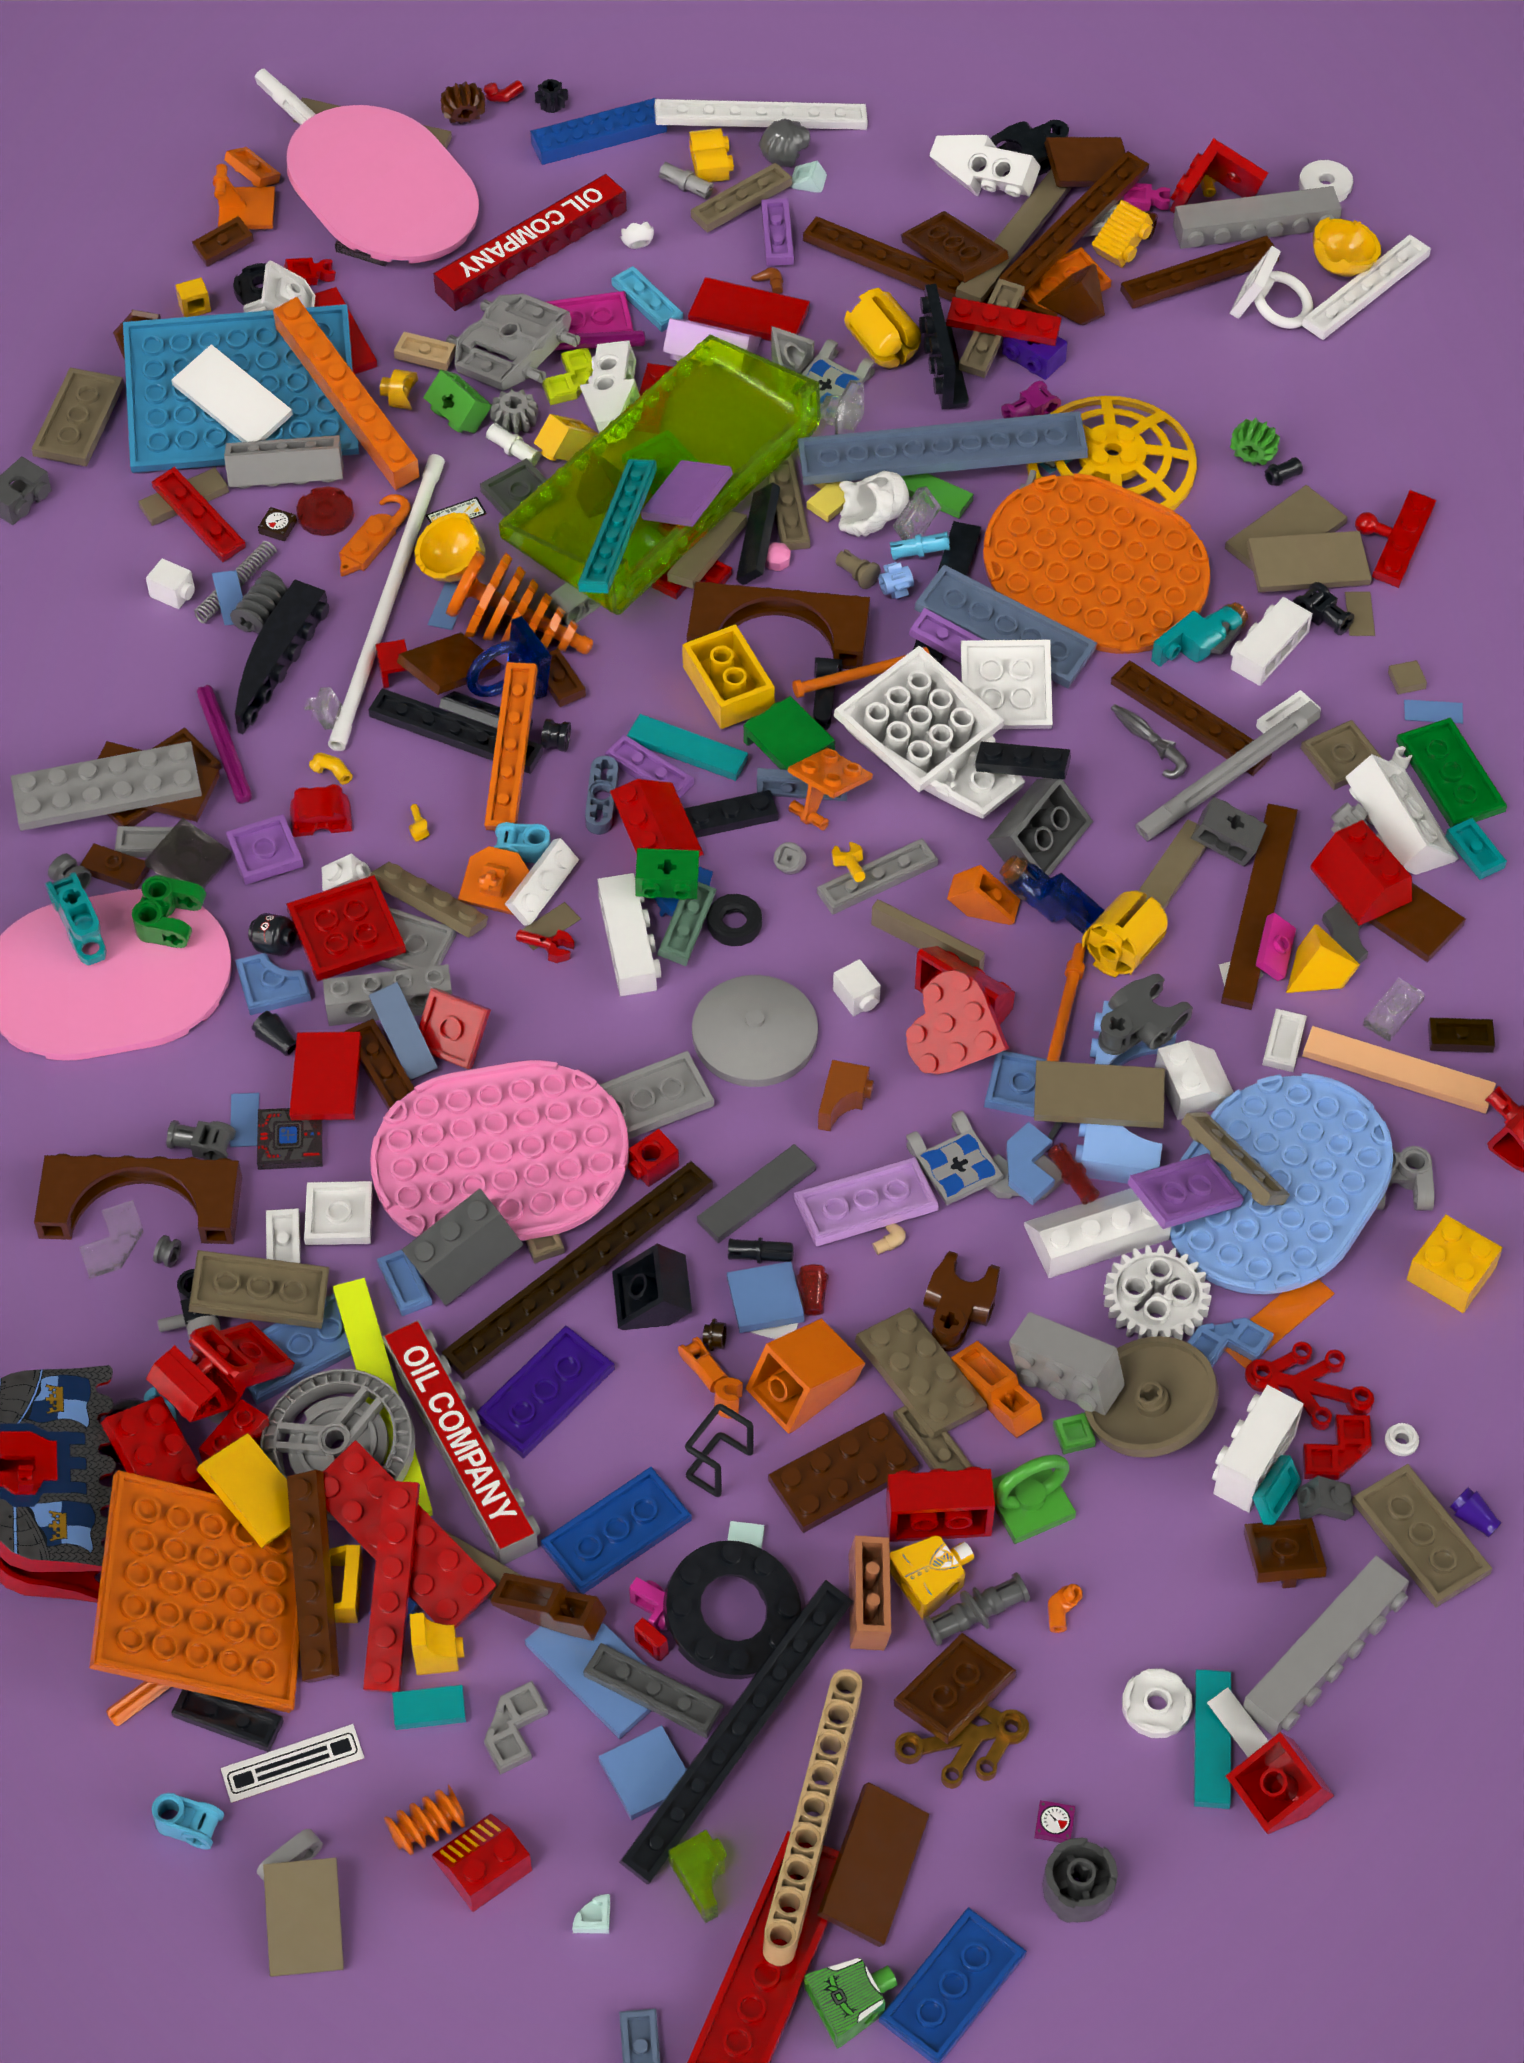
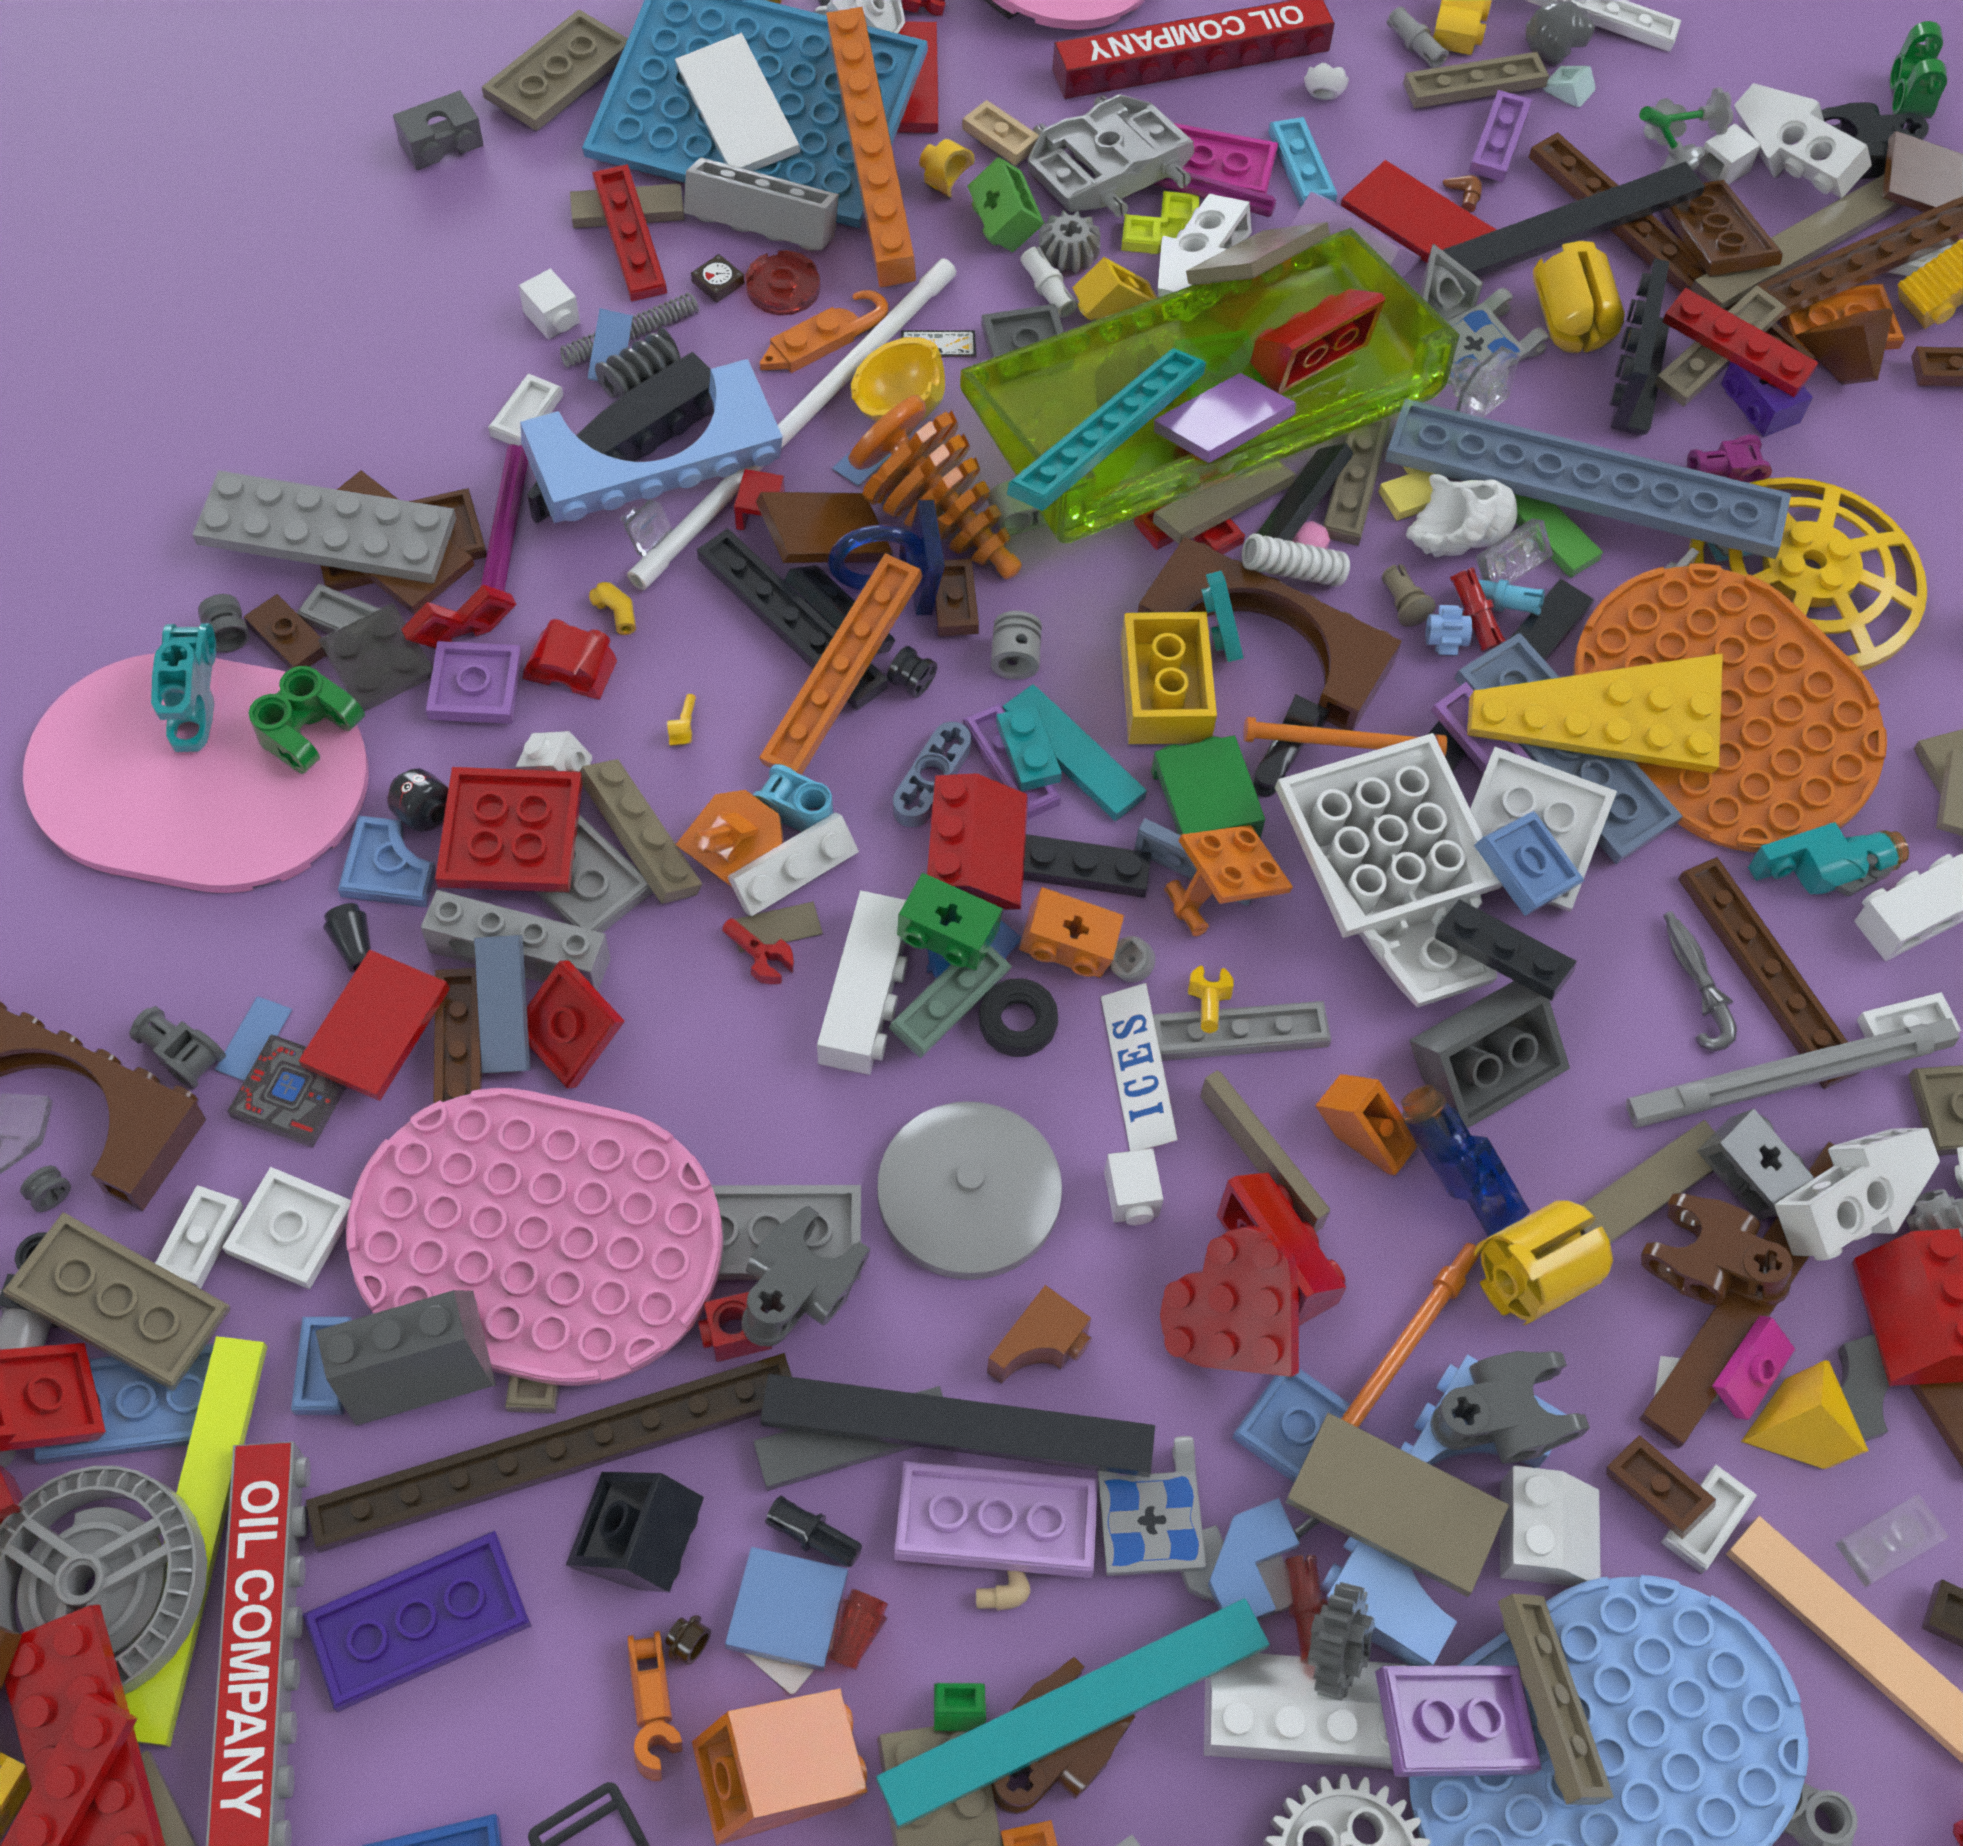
camera: 20 degrees right, 5 degrees up
(193, 662) = (530, 400): none -> white tile
(242, 808) = (477, 615): none -> red tile
(270, 690) = (583, 481): none -> light blue arch
(617, 690) = (1019, 640): none -> light grey piece
(656, 374) = (1257, 254): none -> dark tan tile
(658, 754) = (1028, 748): none -> teal plate
(680, 1113) = (796, 1280): none -> dark grey piece
(722, 418) = (1316, 338): none -> red slope
(741, 615) = (1217, 600): none -> teal plate
(744, 855) = (1056, 918): none -> orange brick
(776, 571) = (1295, 560): none -> white piece
(818, 1156) = (958, 1425): none -> black tile
(824, 919) = (1138, 1068): none -> white sticker
(858, 274) = (1577, 220): none -> black tile
(889, 181) = (1668, 121): none -> light grey plant
(894, 1304) = (959, 1706): none -> green tile
(909, 558) = (1478, 608): none -> red pin
(940, 192) = (1728, 155): none -> white brick
(963, 1274) = (1070, 1713): none -> teal tile
(1014, 703) = (1529, 863): none -> medium blue tile
(1039, 589) = (1632, 713): none -> yellow wing
(1044, 89) = (1918, 73): none -> green piece
(1100, 1173) = (1341, 1641): none -> dark grey gear
(1230, 892) = (1722, 1257): none -> reddish brown piece
(1248, 1032) = (1661, 1487): none -> reddish brown plate
(1299, 823) = (1862, 1194): none -> white brick

